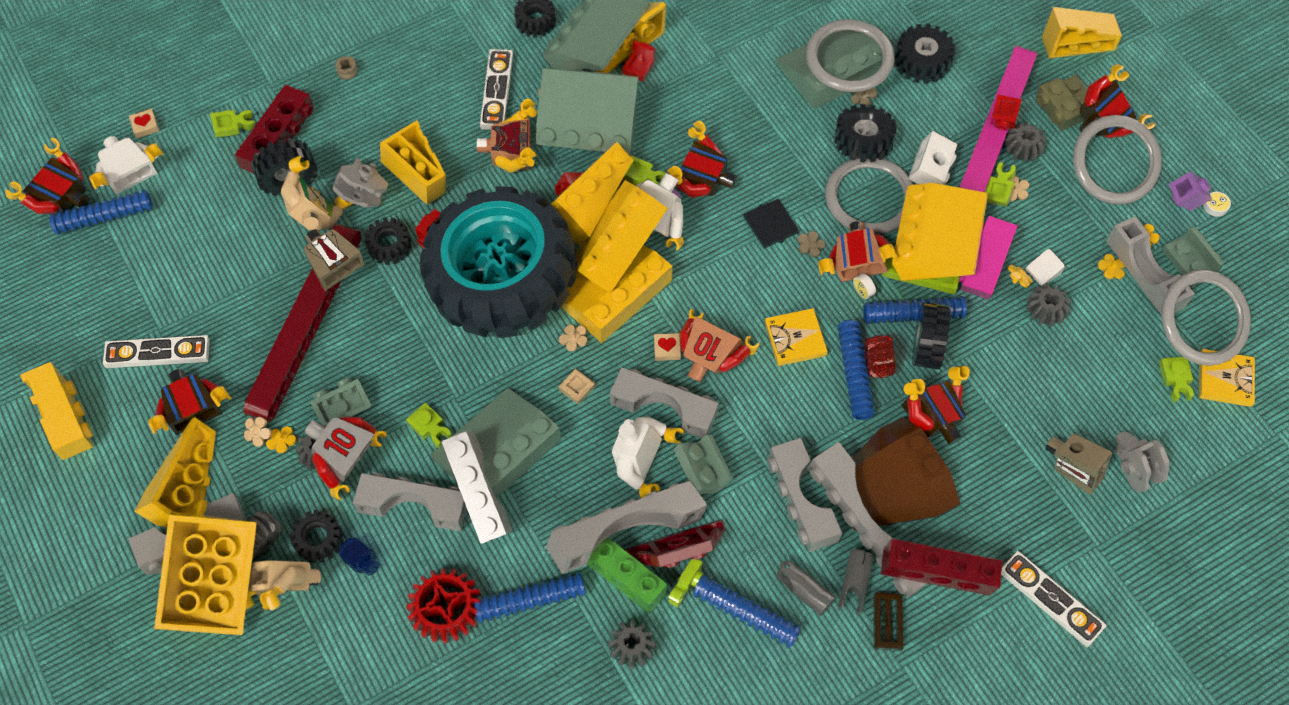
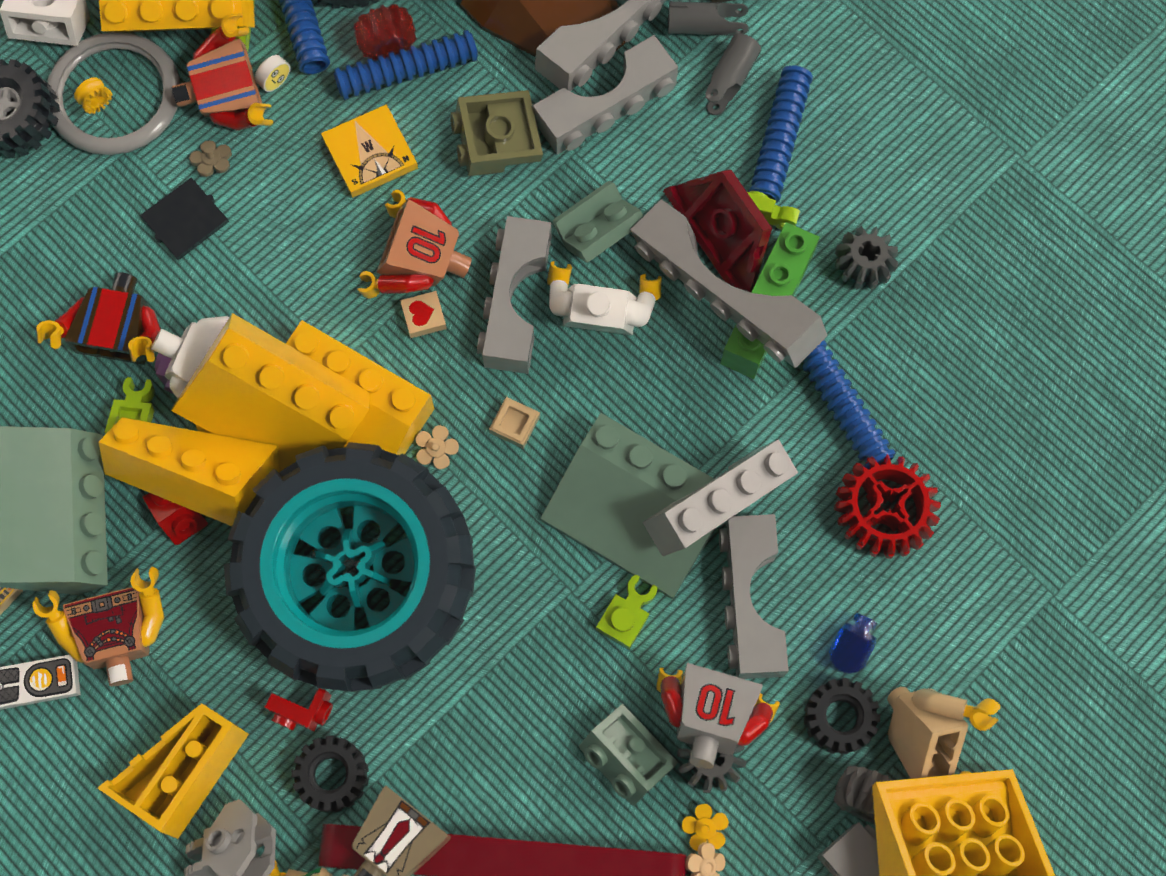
camera: 105 degrees left, 10 degrees up
(788, 413) = (495, 132): none -> olive plate
(863, 177) = (92, 95): none -> yellow bush

